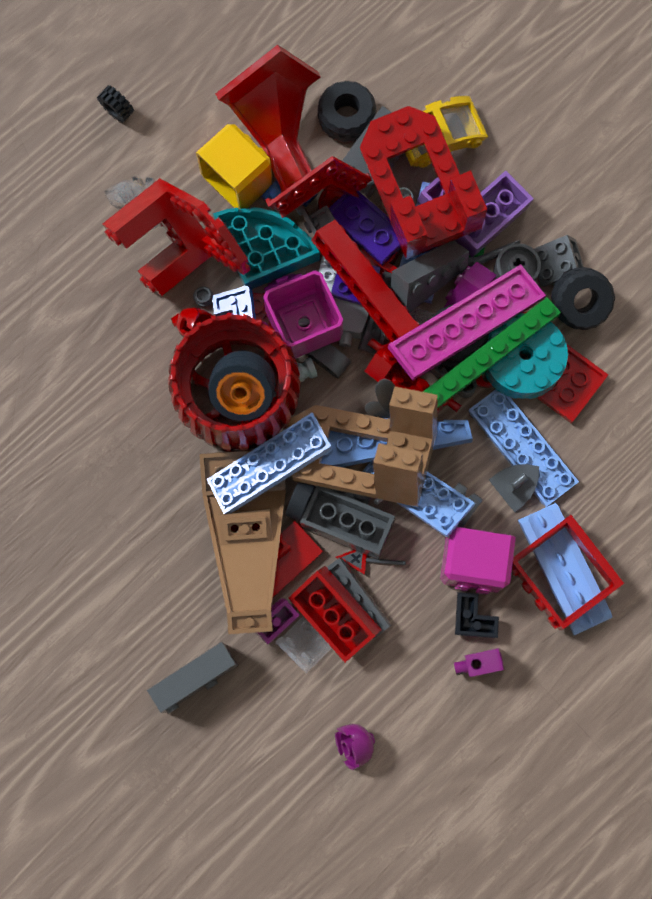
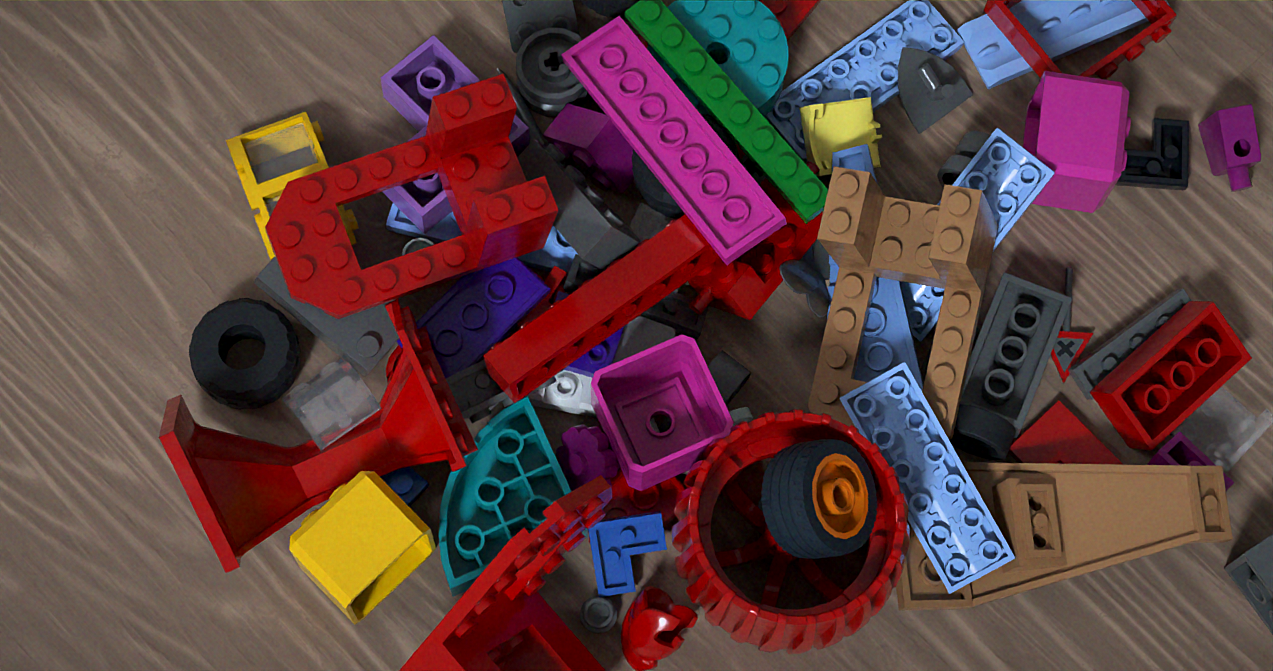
camera: 95 degrees left, 5 degrees down
(315, 149) = (331, 403): none -> clear brick
(485, 428) = (837, 128): none -> light yellow piece

